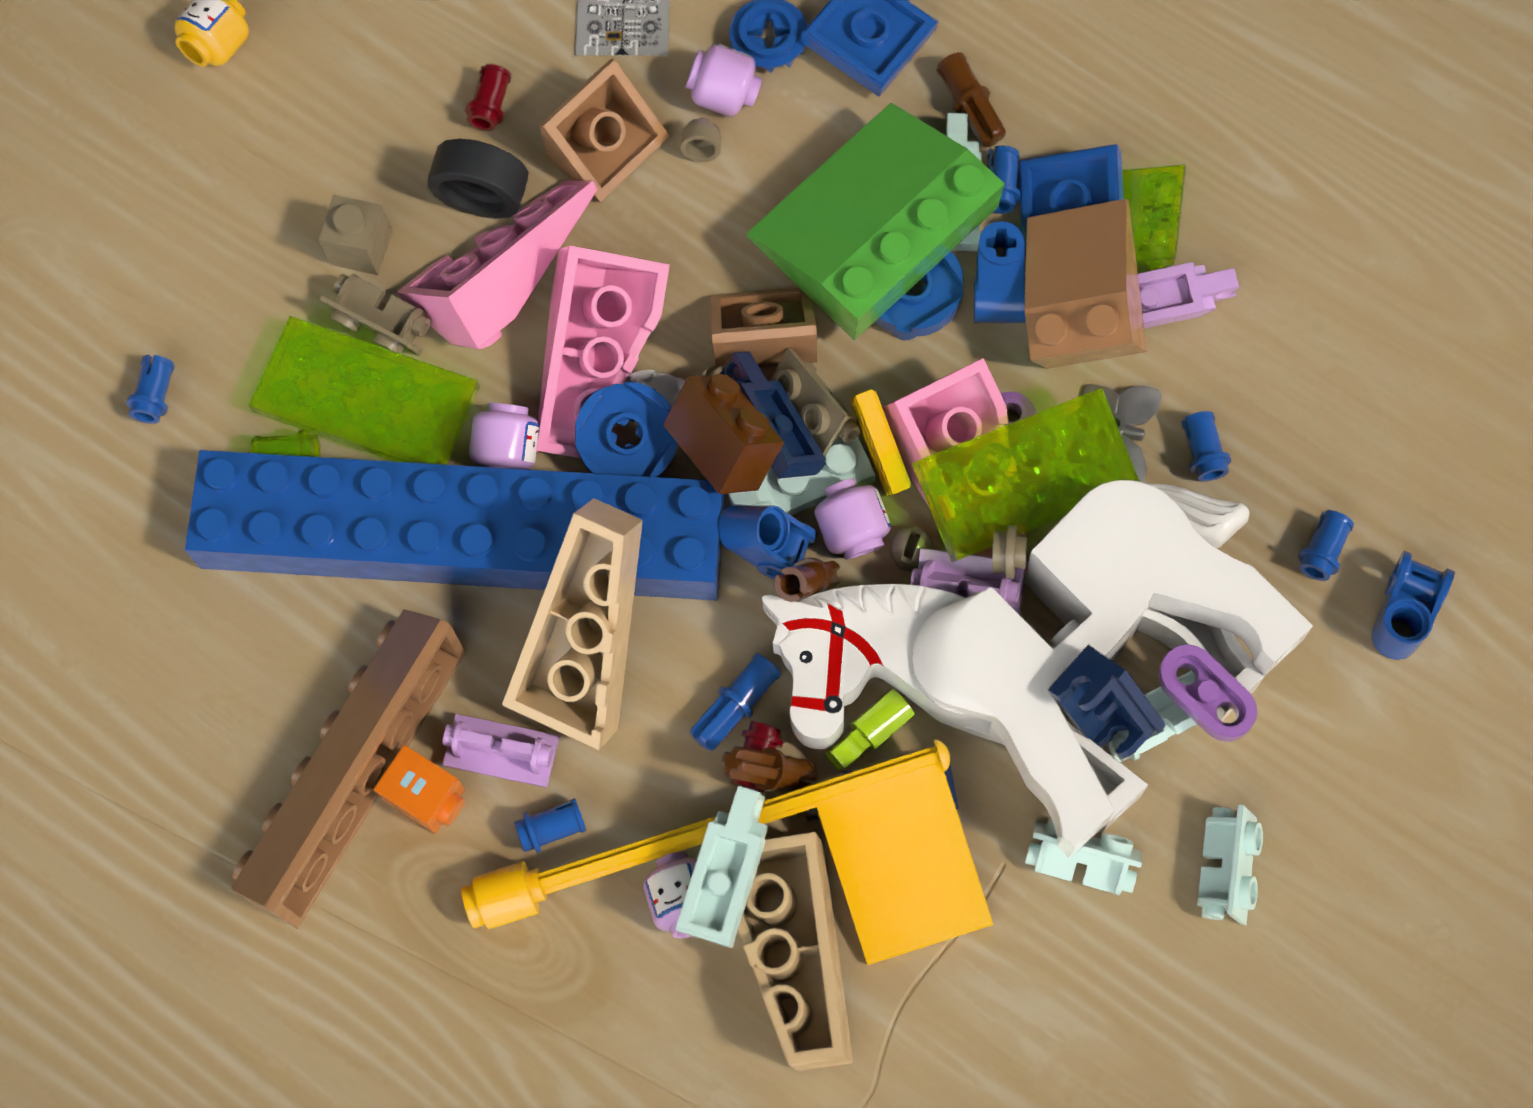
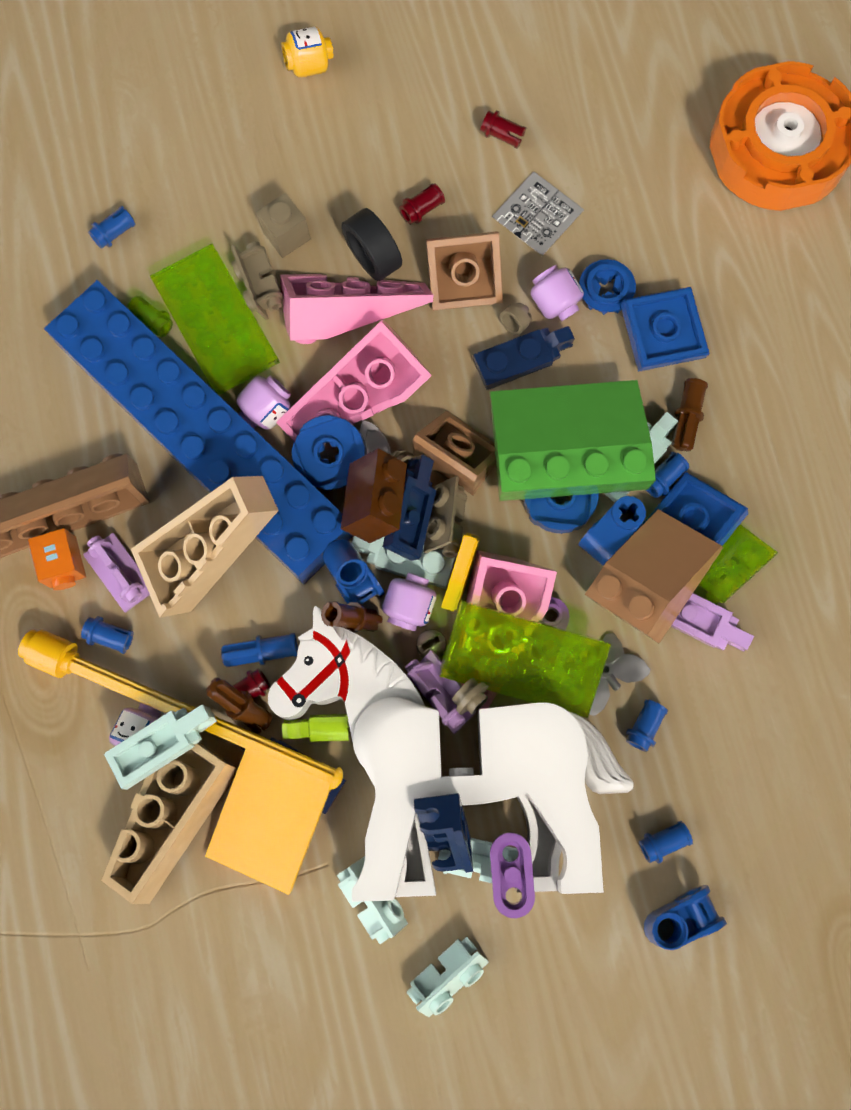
camera: 40 degrees right, 5 degrees up
(740, 176) = (521, 356): none -> dark blue hinge

